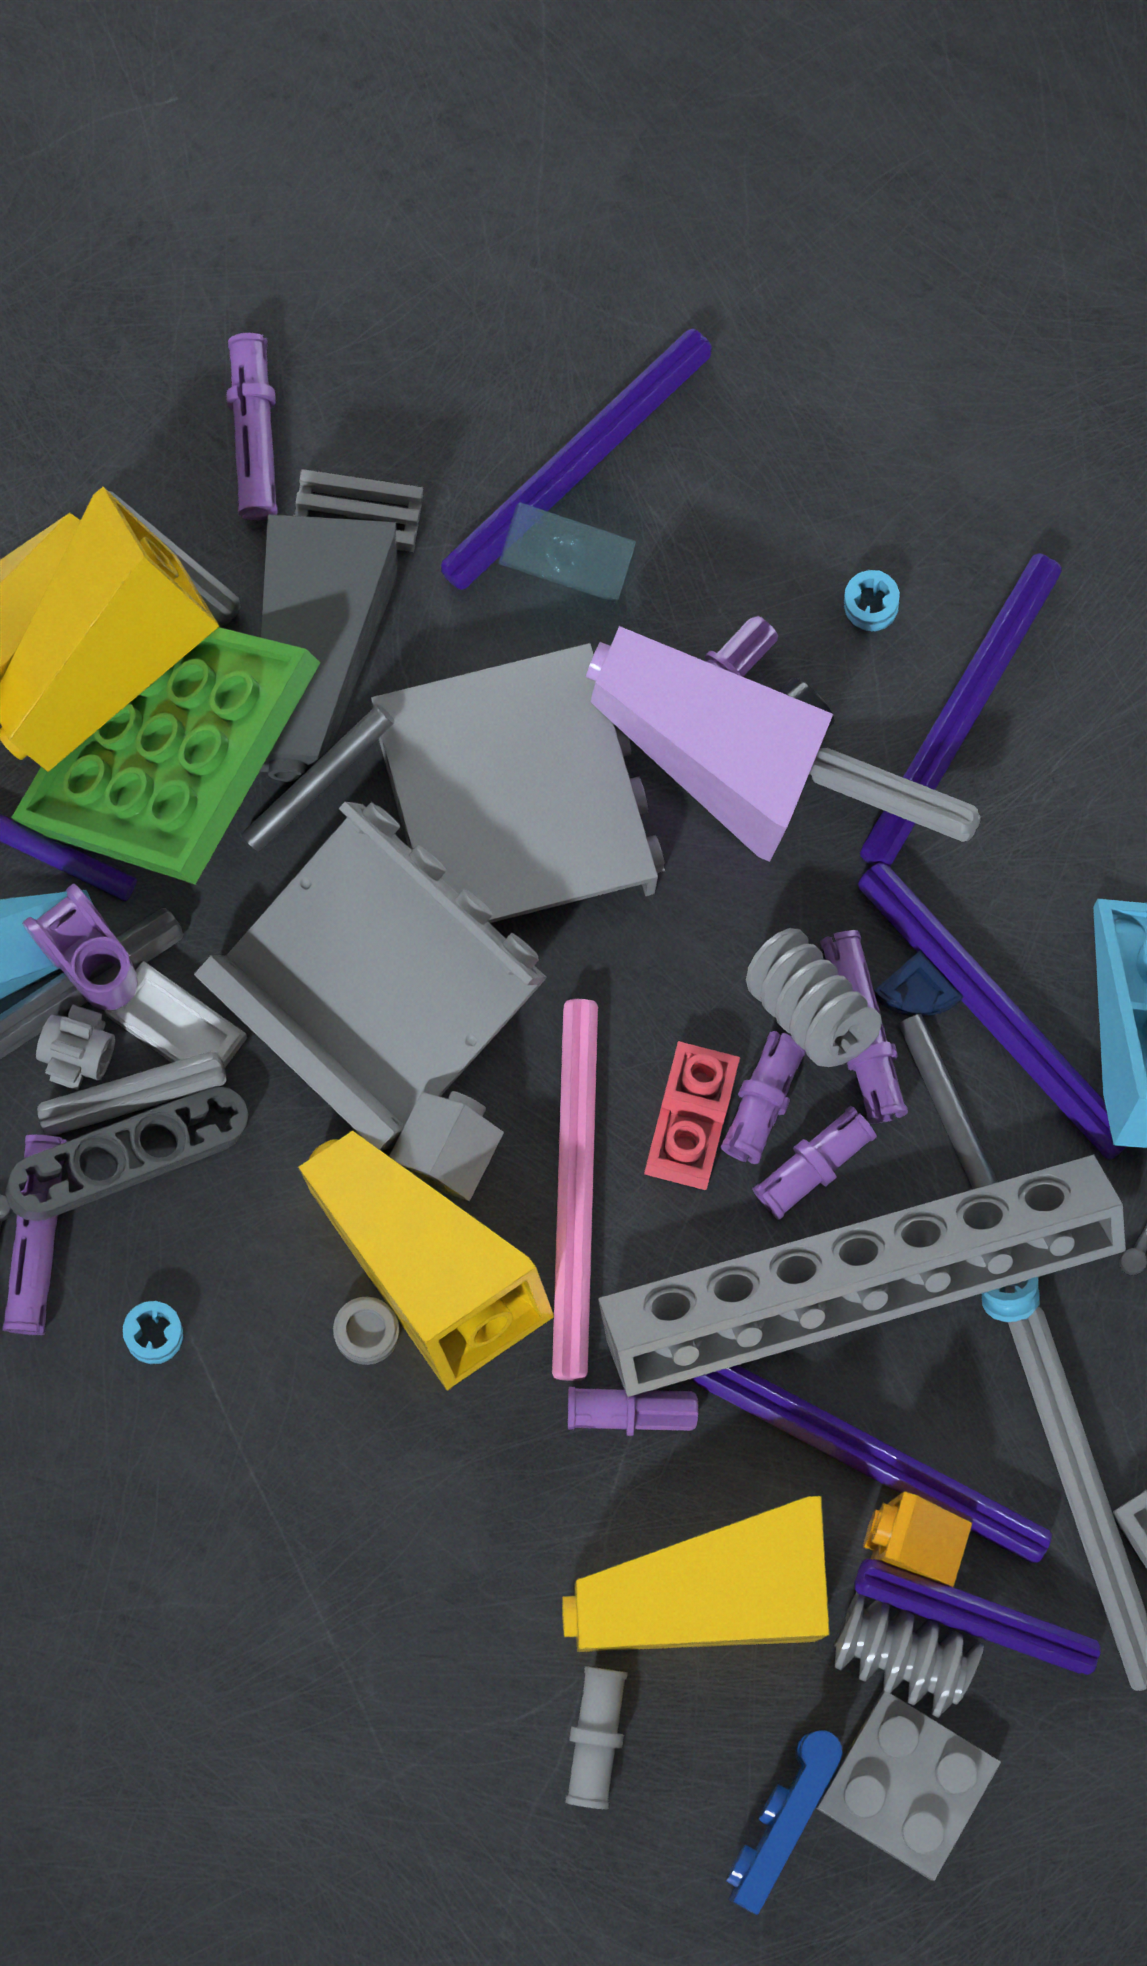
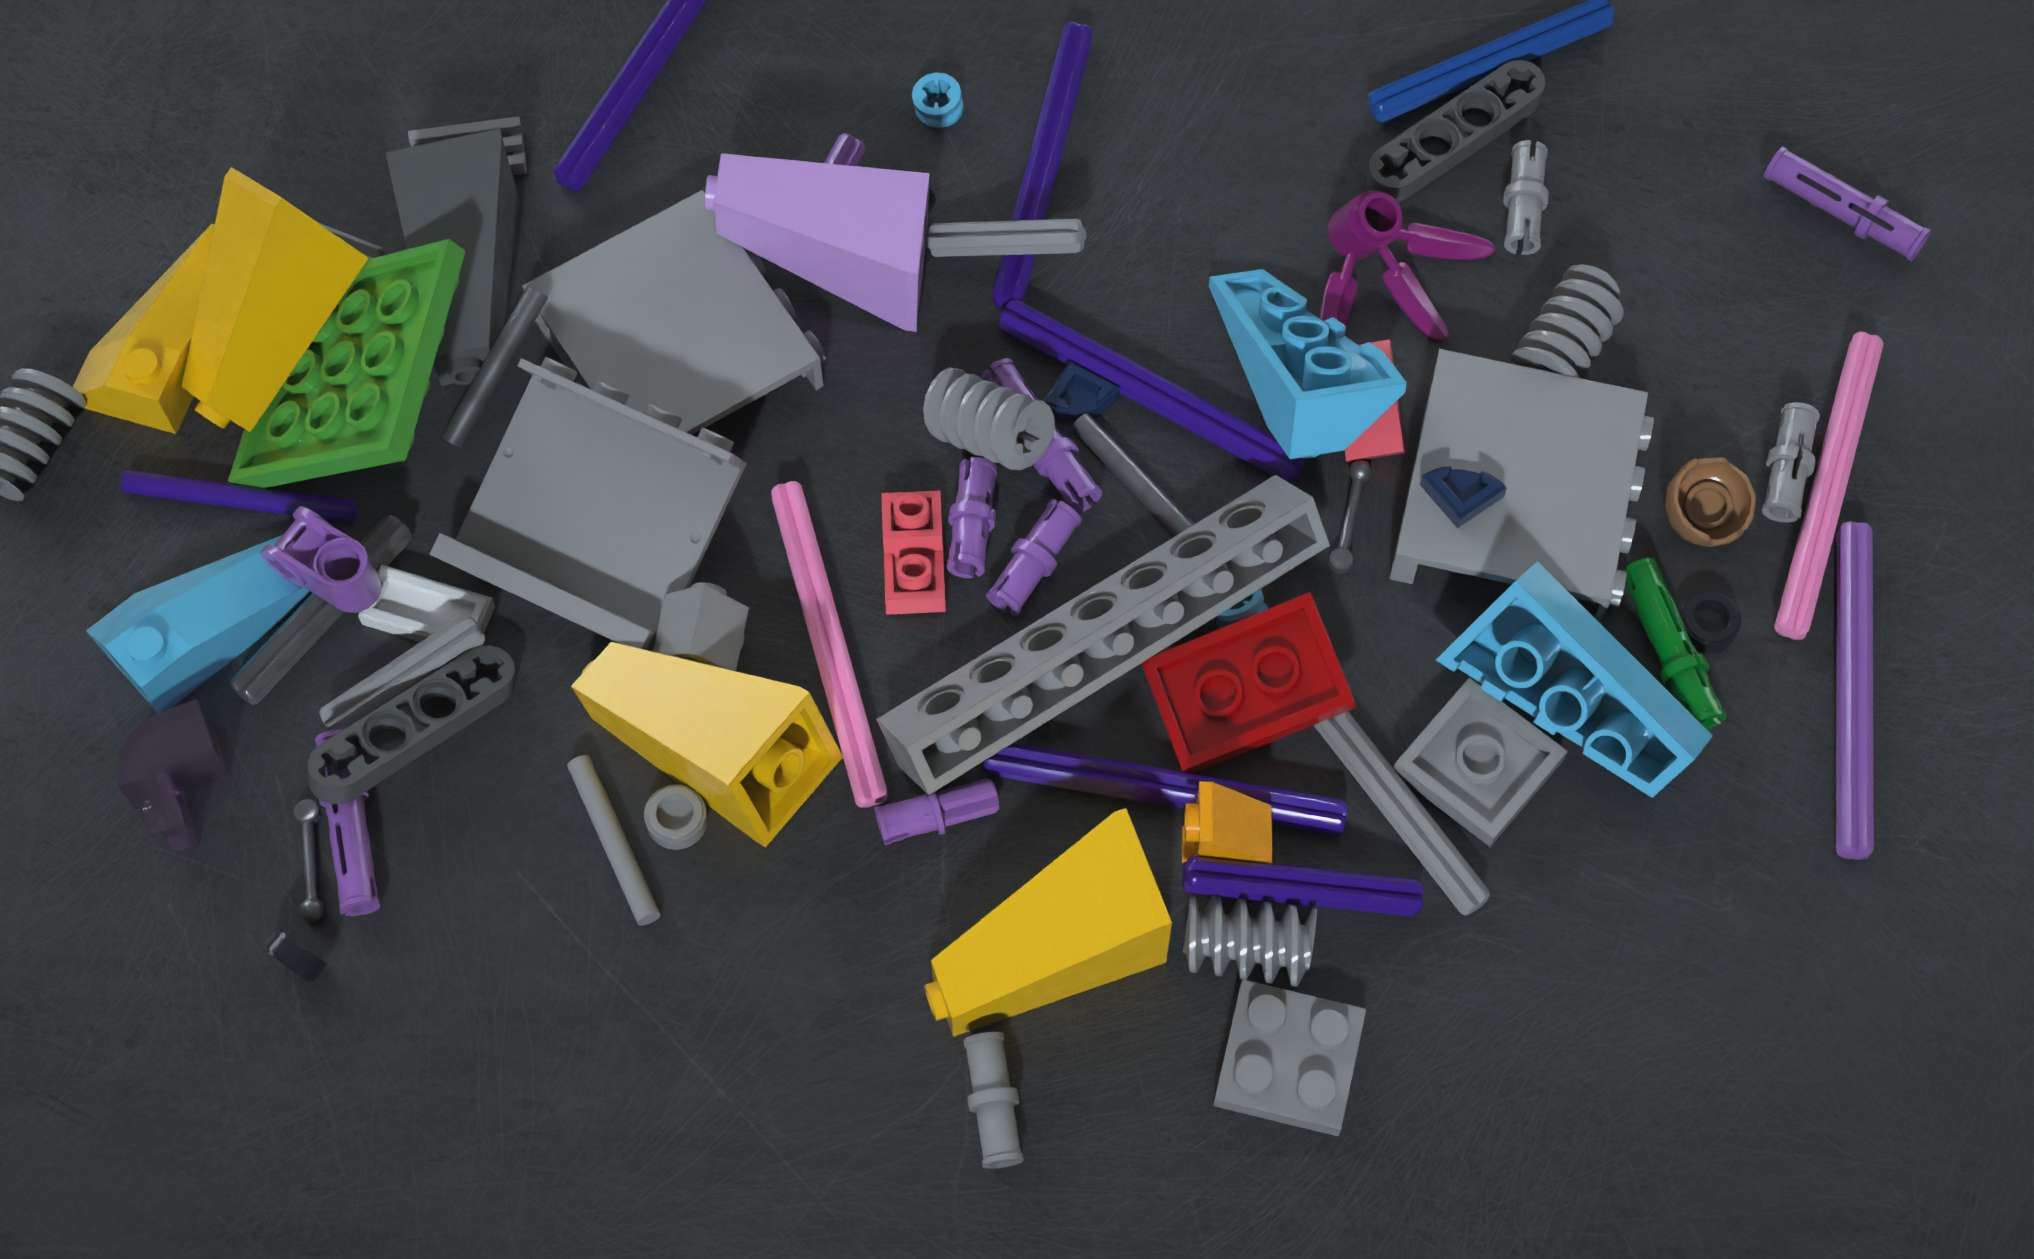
camera: 10 degrees left, 10 degrees down
(75, 1047) = (339, 650): light grey gear -> none
(133, 1331) = (481, 895): medium azure bush -> none
(251, 405) = (349, 92): medium lavender pin -> none
(296, 1336) = (613, 840): none -> light grey bar
(567, 552) = (661, 131): clear light blue plate -> none
(786, 1816) = (1187, 1114): blue plate -> none
(992, 1378) = (1248, 684): none -> red plate

